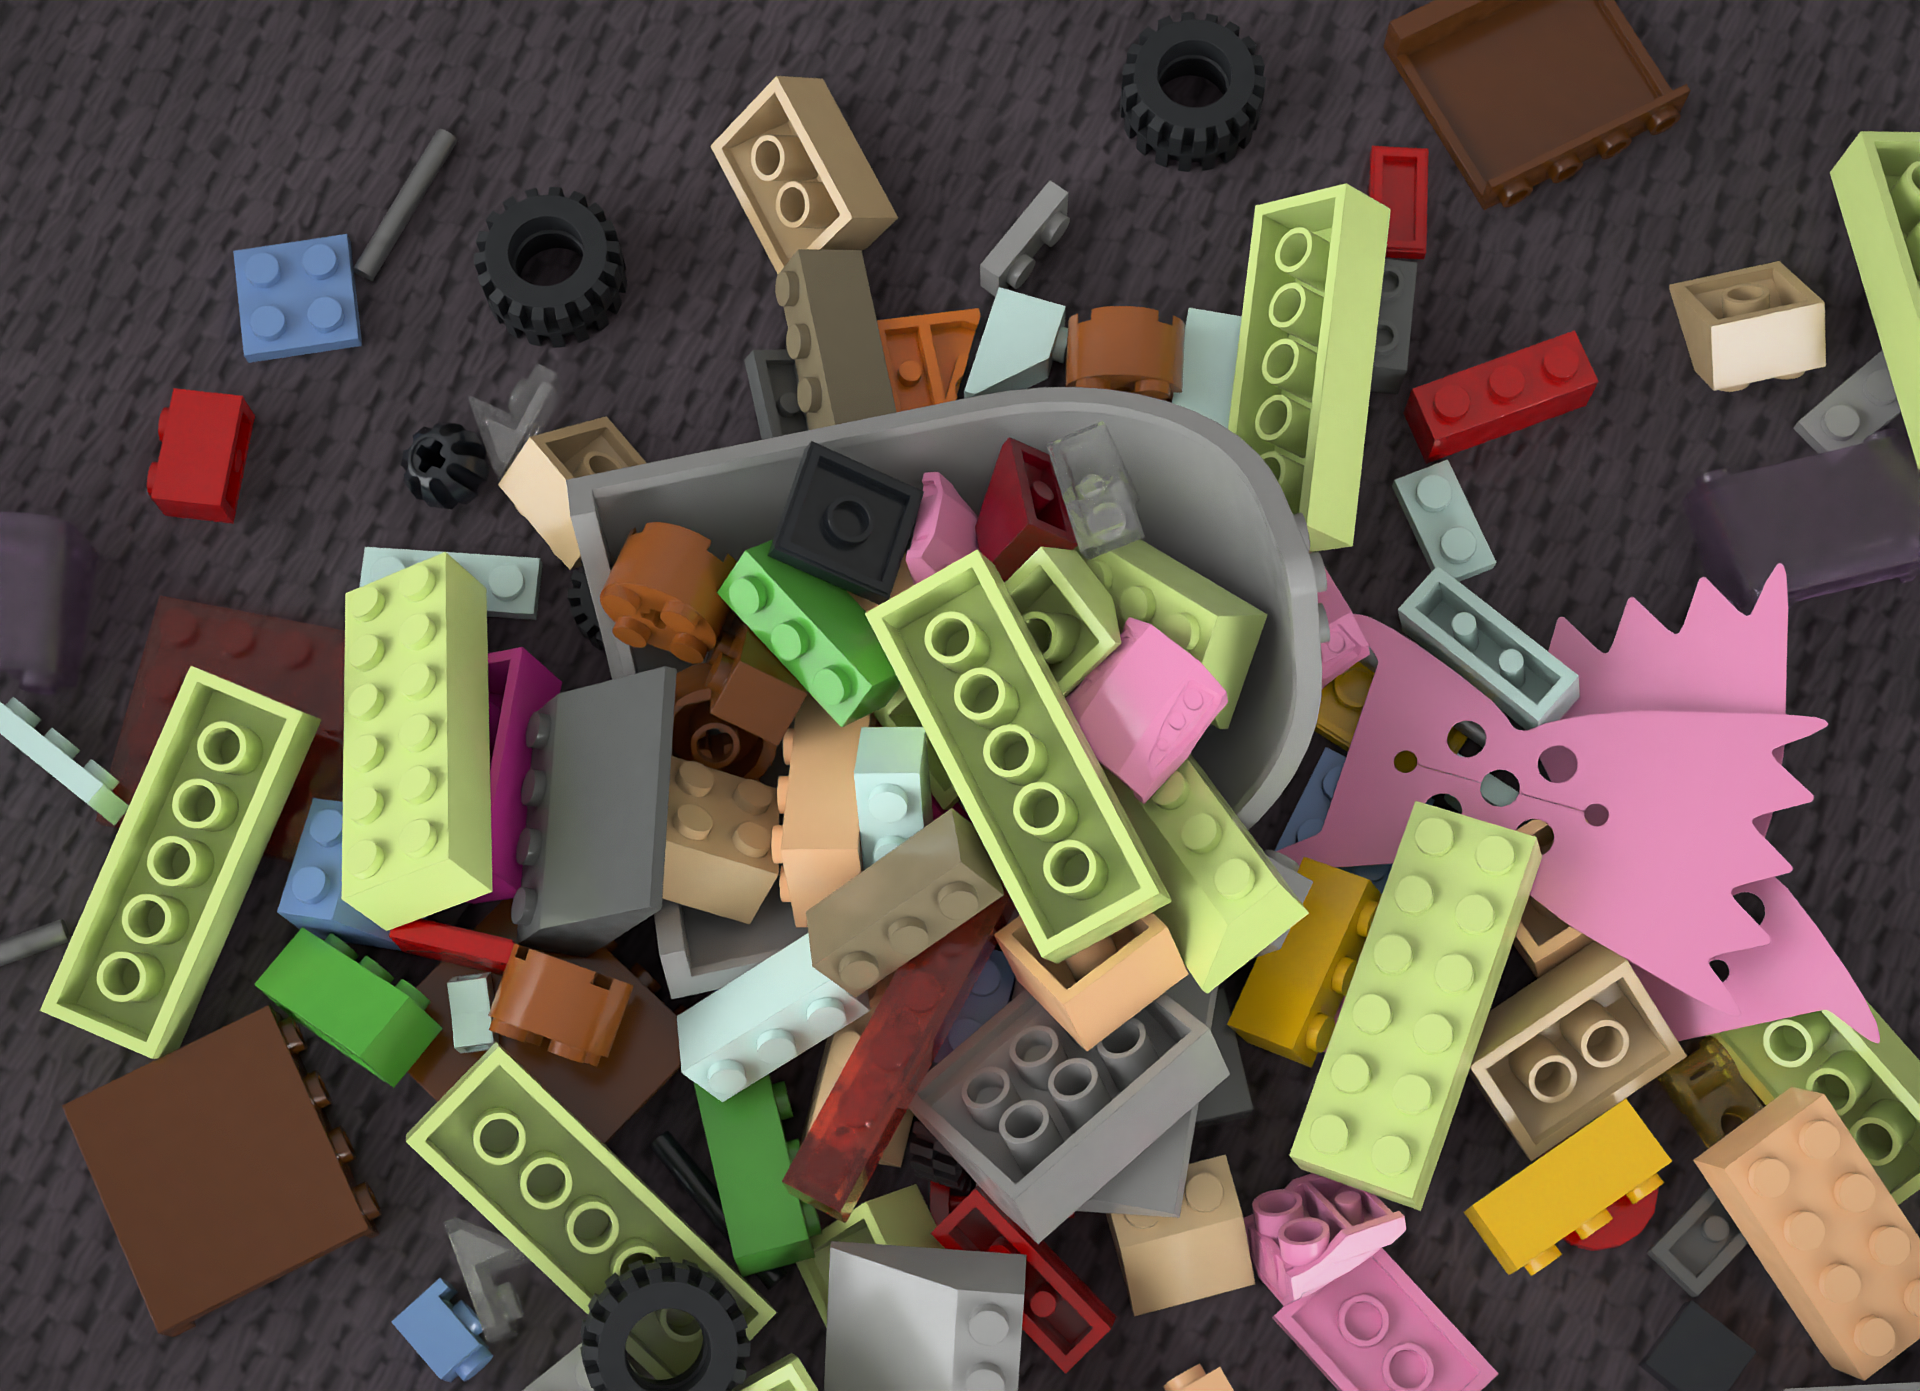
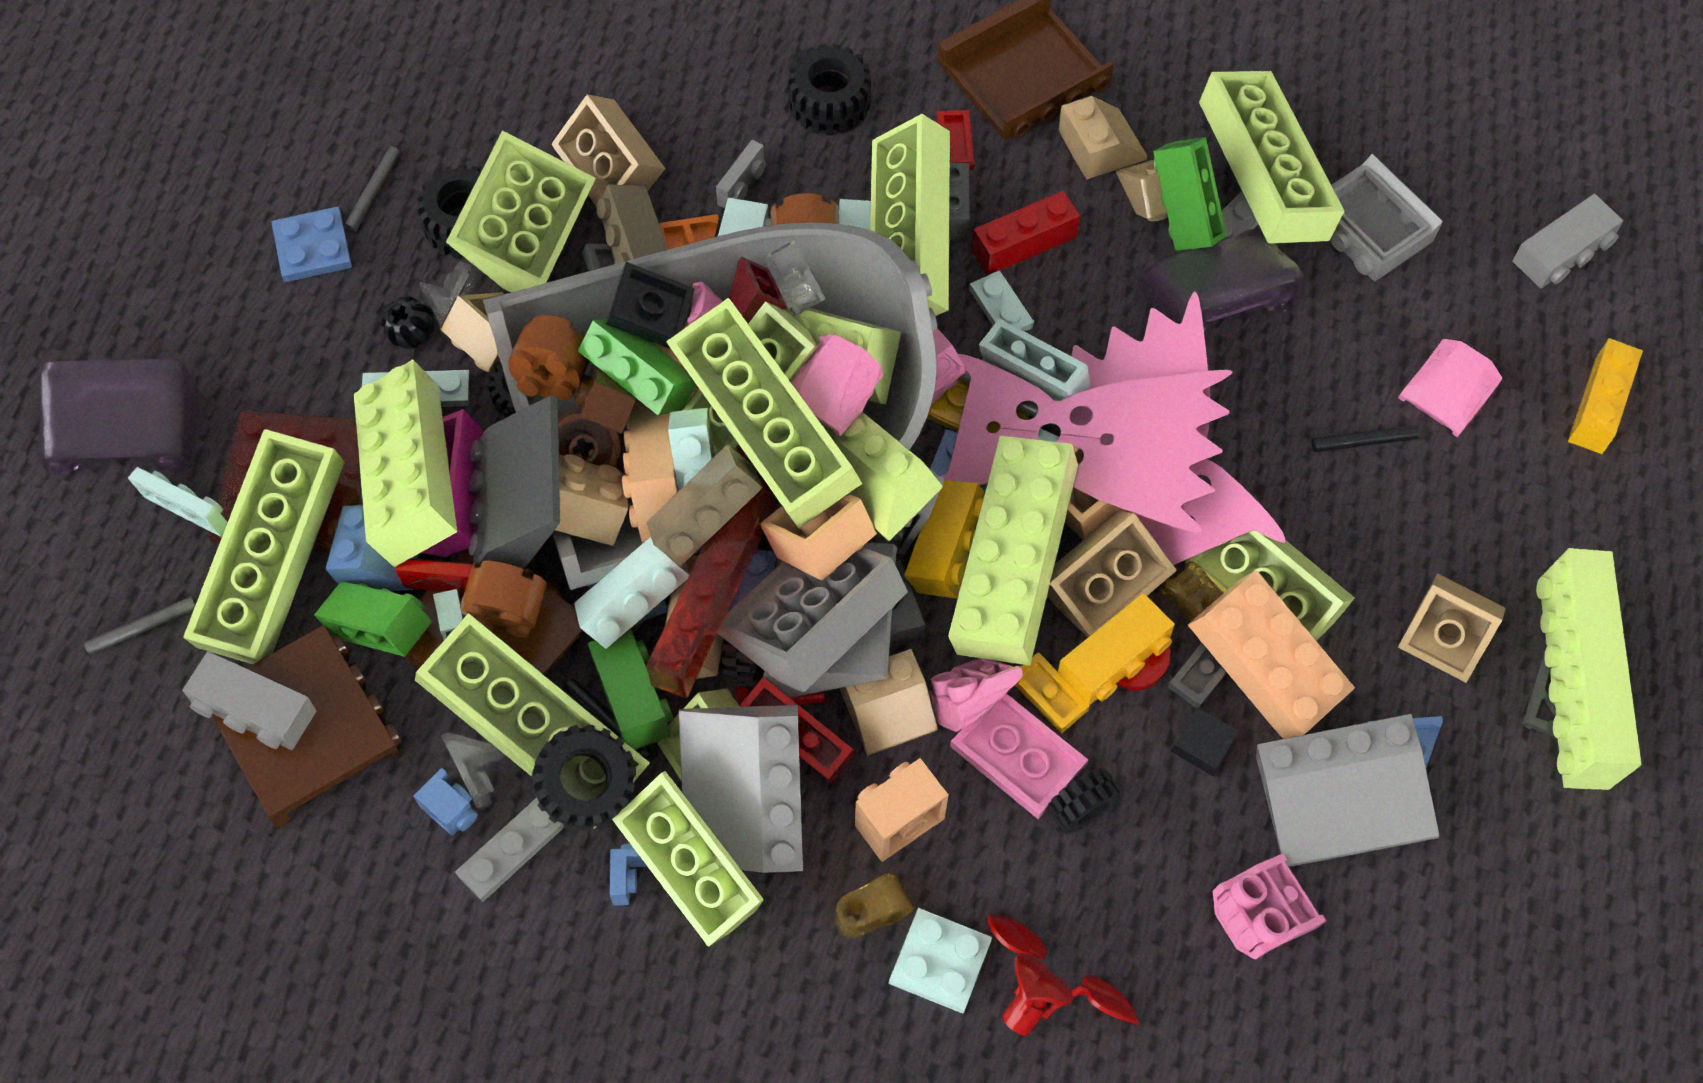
camera: 10 degrees left, 10 degrees down
(136, 1139) = (248, 702): none -> light grey brick
(201, 455) = (260, 331): red brick -> none
(646, 293) = (519, 214): none -> yellowish green slope
(1451, 1248) = (1051, 693): none -> yellow plate
(1648, 223) = (1098, 137): none -> tan slope
(1794, 364) = (1190, 194): none -> bright green brick

